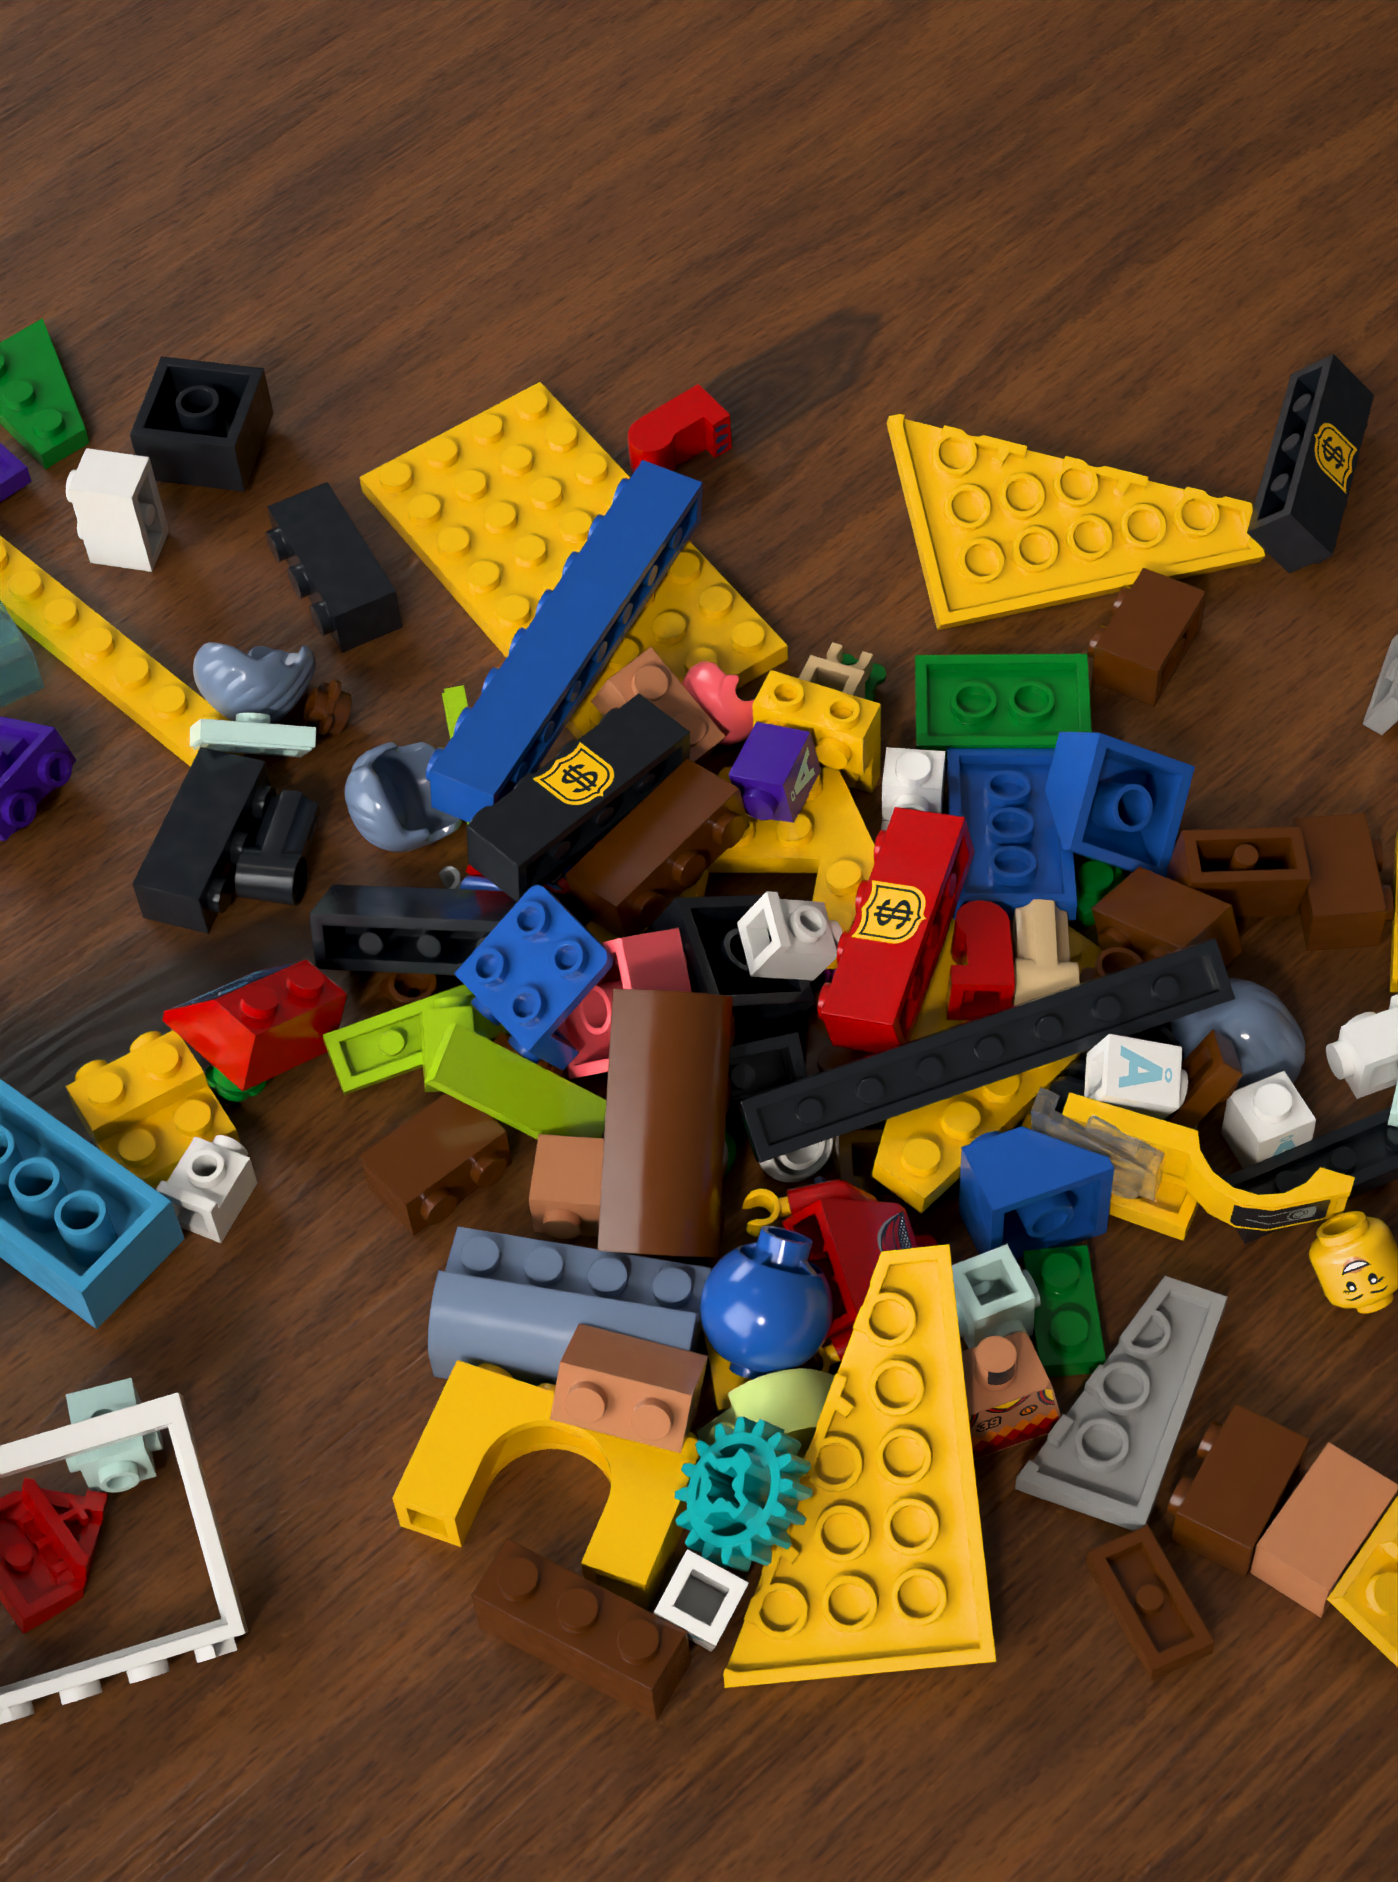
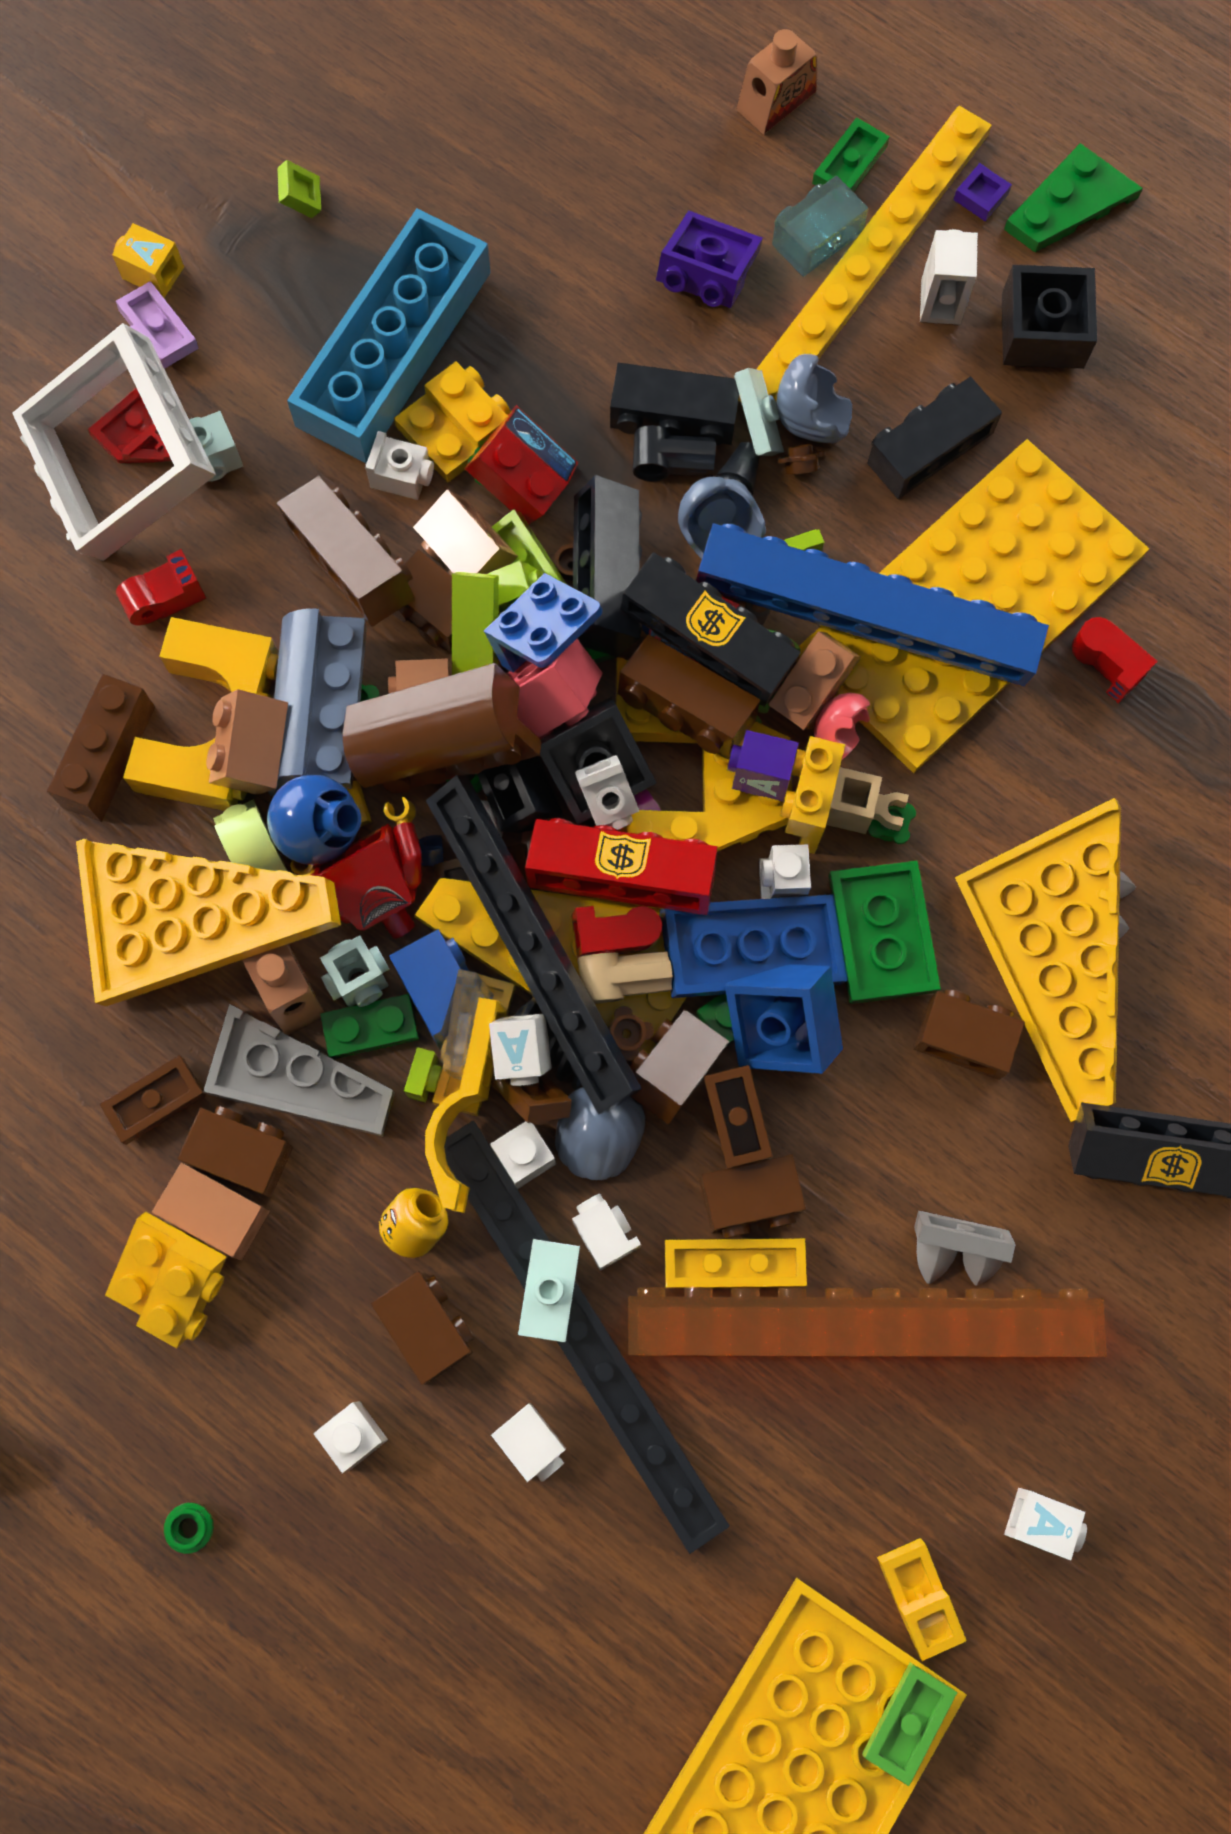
camera: 75 degrees right, 20 degrees up
(320, 780) = (742, 466): none -> black cone
(329, 1527) = (160, 591): none -> red leg
(340, 1244) = (347, 551): none -> brick
(357, 1103) = (462, 537): none -> brick
(701, 1599) = (119, 814): white brick -> none
(743, 1494) = (174, 824): teal gear -> none
(1145, 1240) = (423, 1075): none -> lime plate

